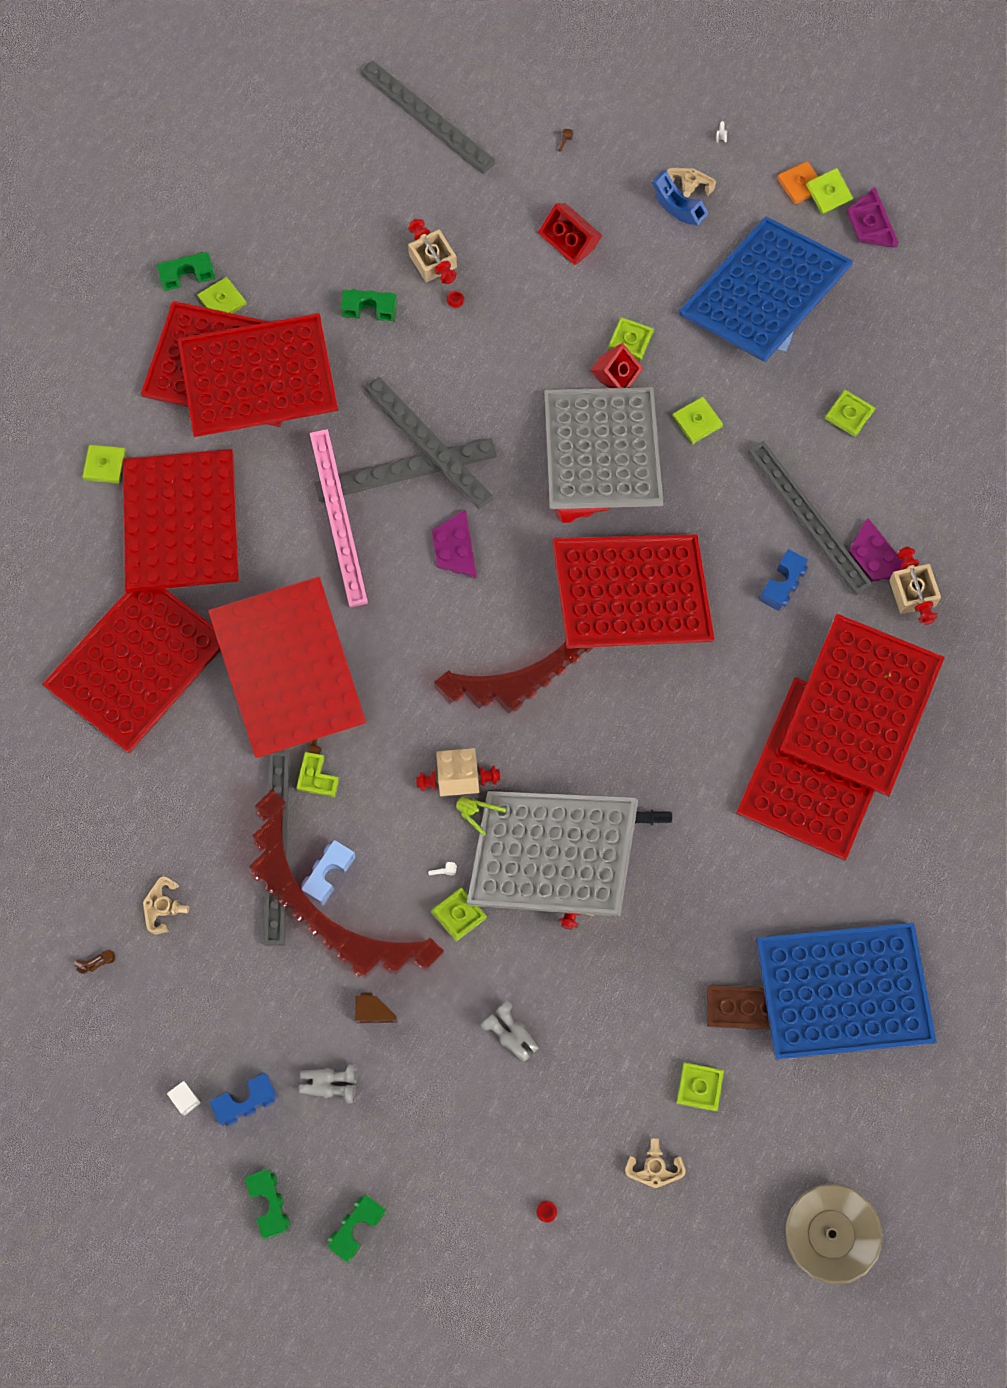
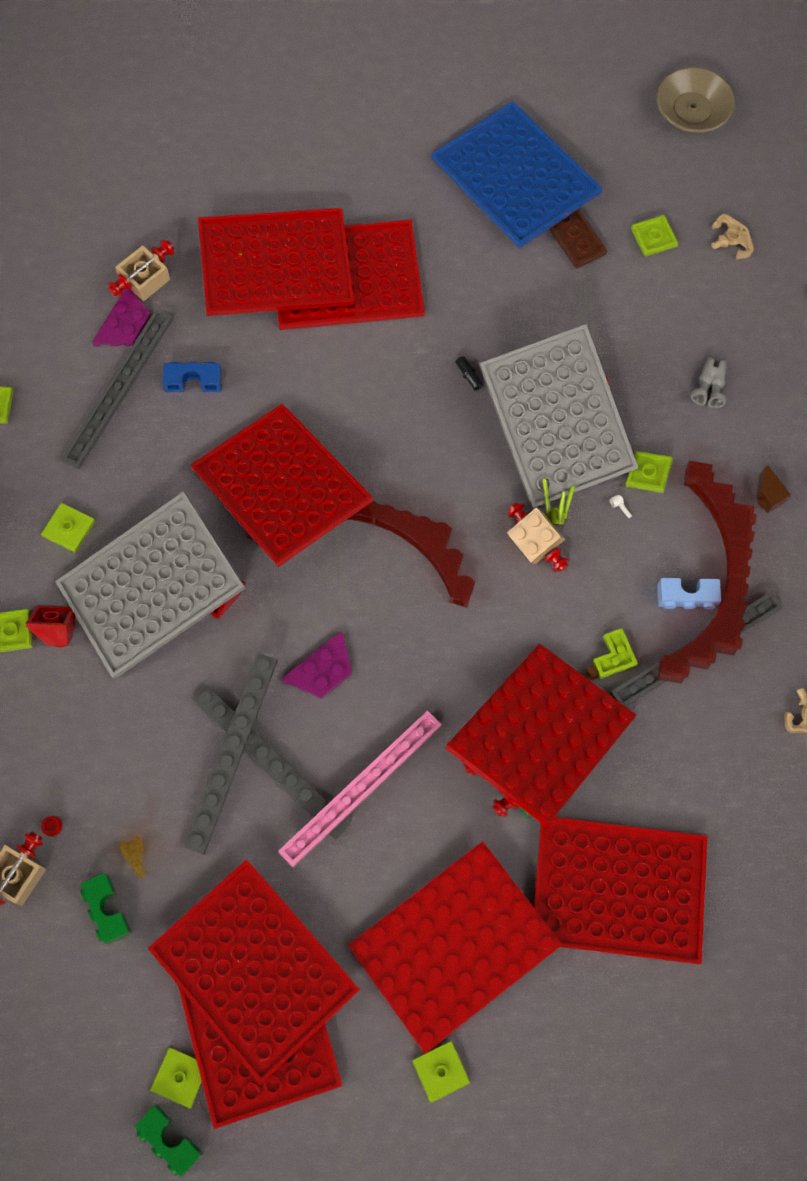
camera: 125 degrees left, 0 degrees up
(398, 340) = (132, 852): none -> clear yellow piece

